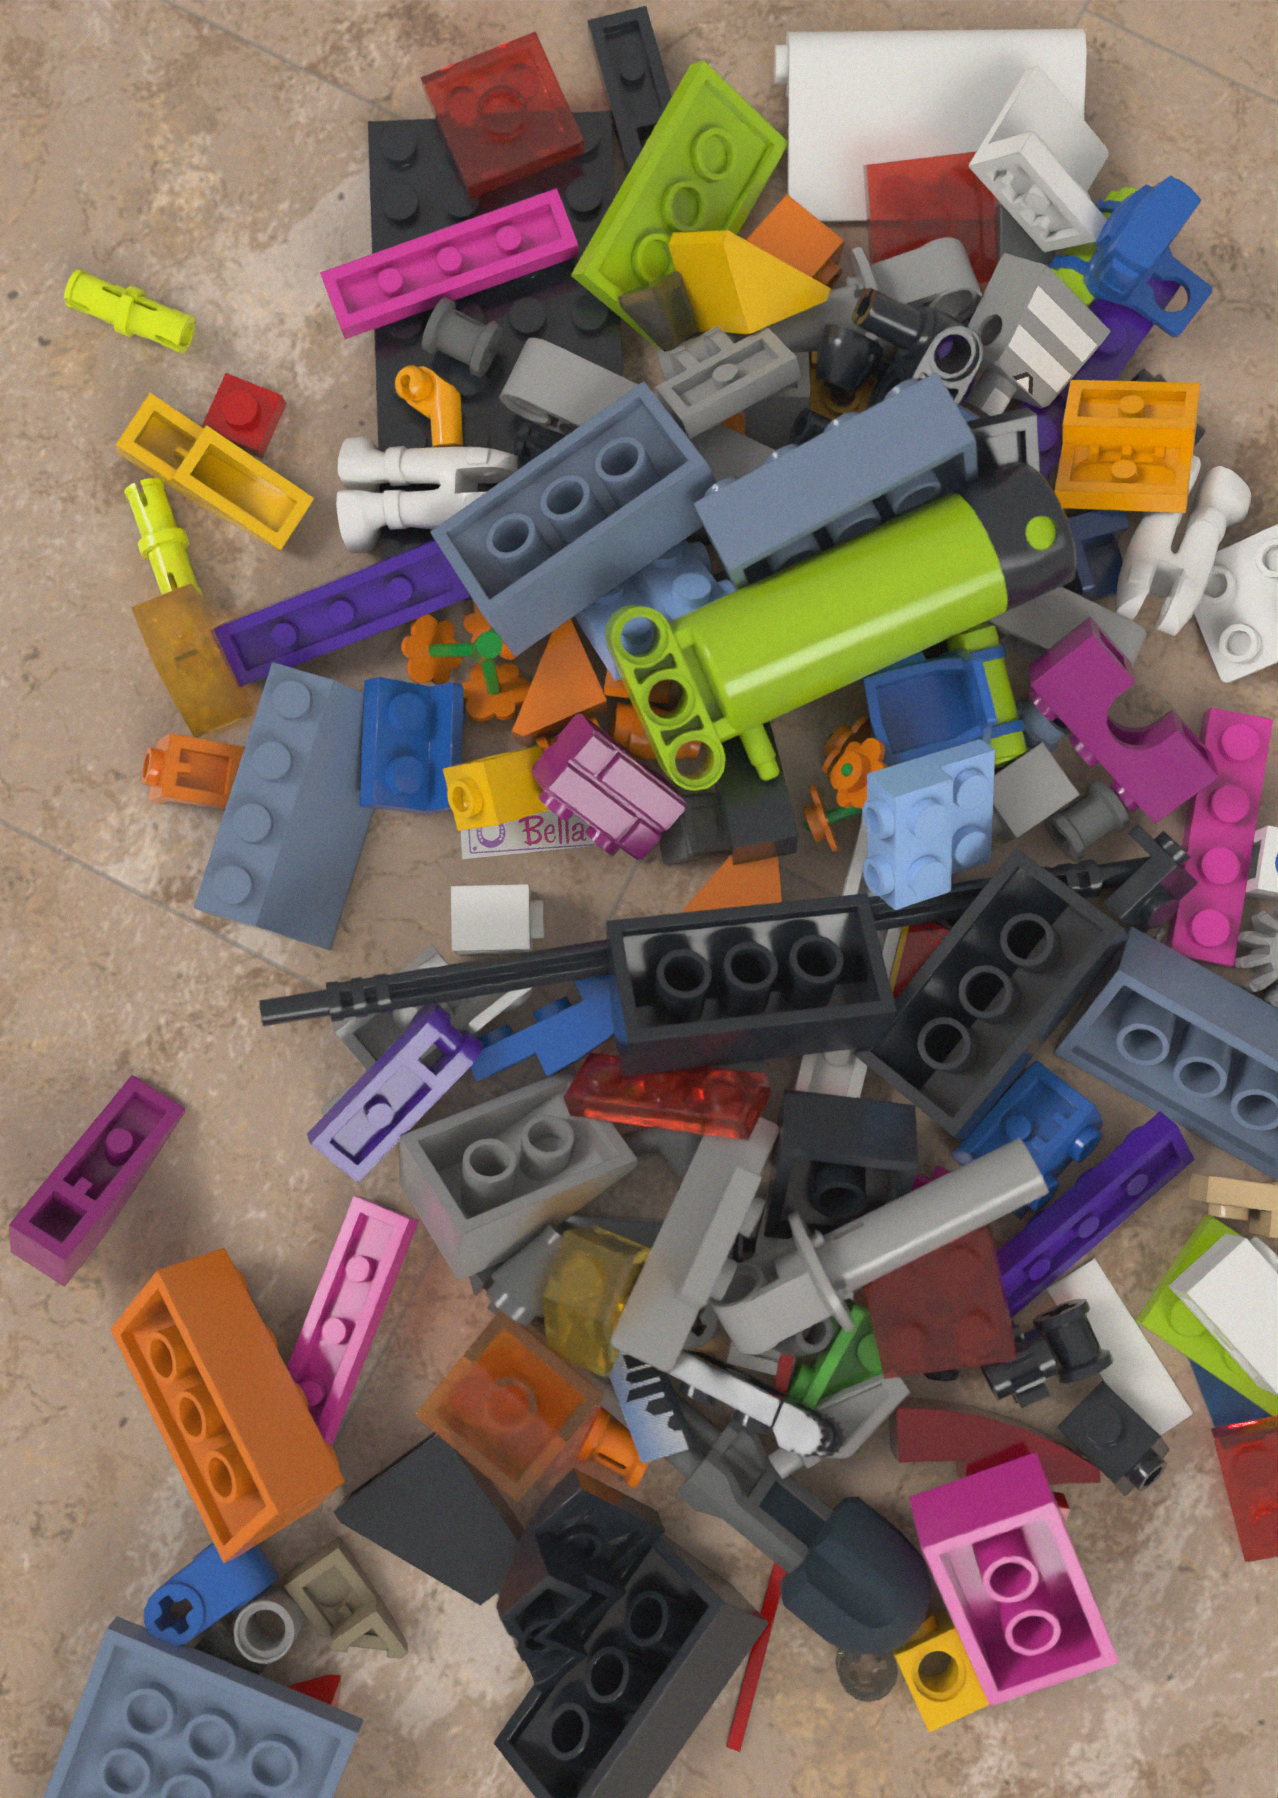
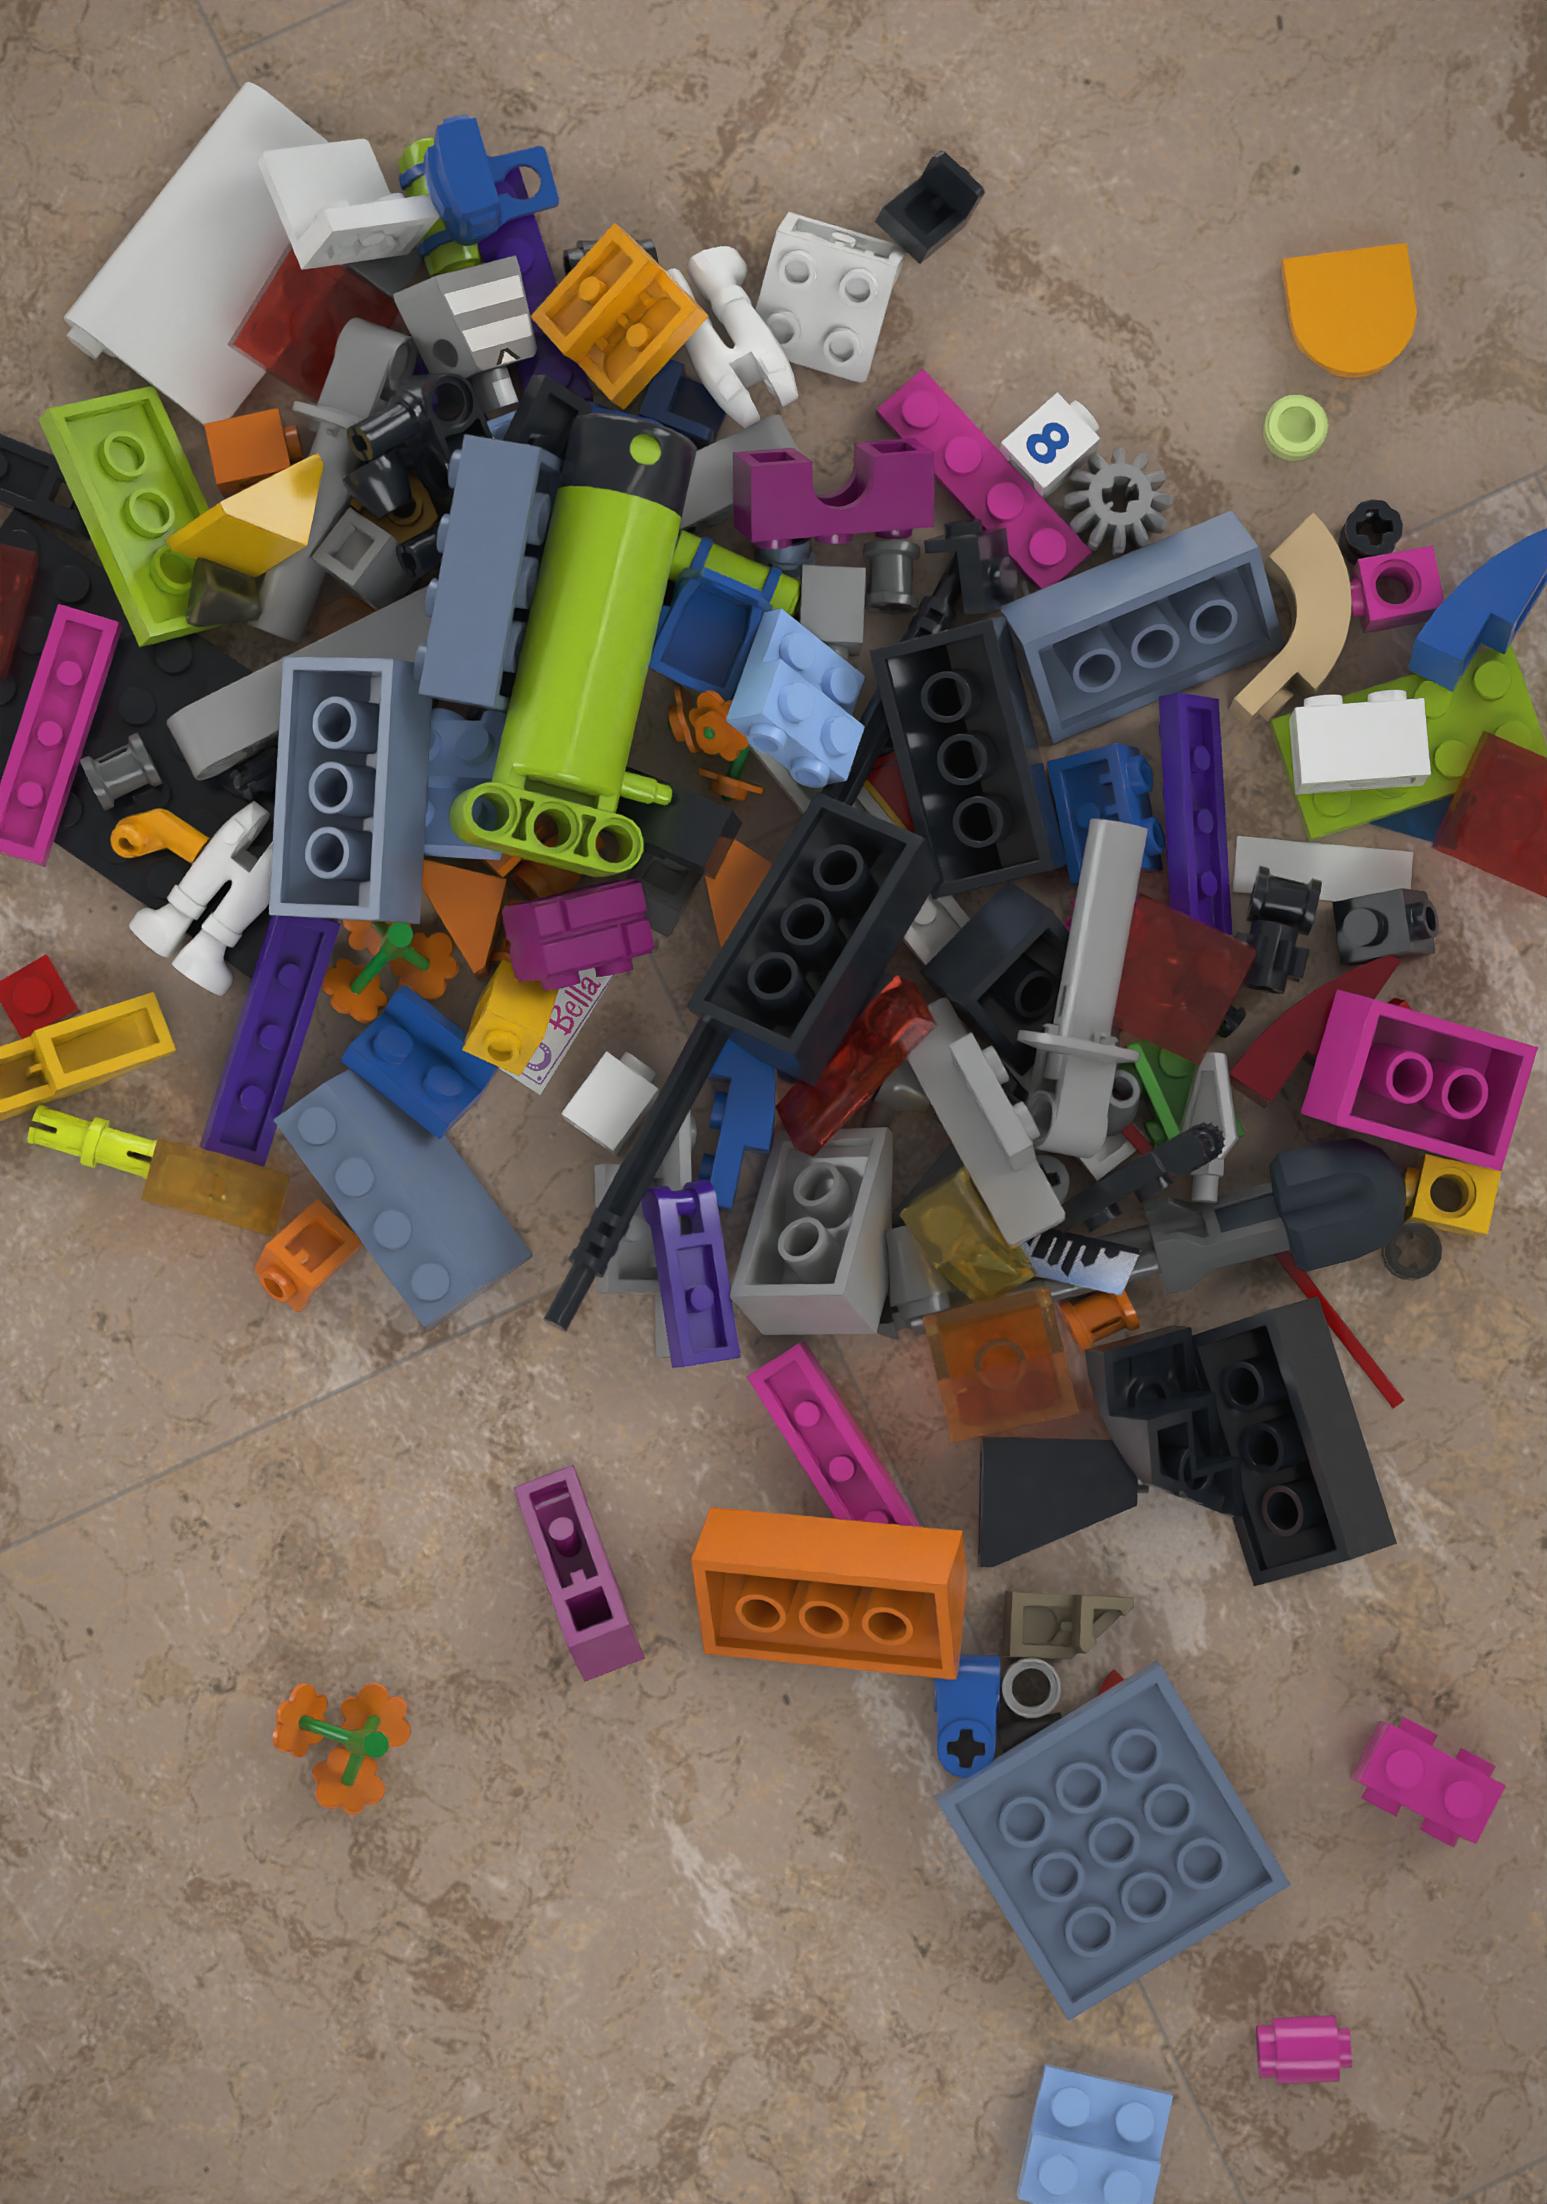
camera: 50 degrees left, 0 degrees up
(727, 380) = (330, 593): light grey hinge -> none

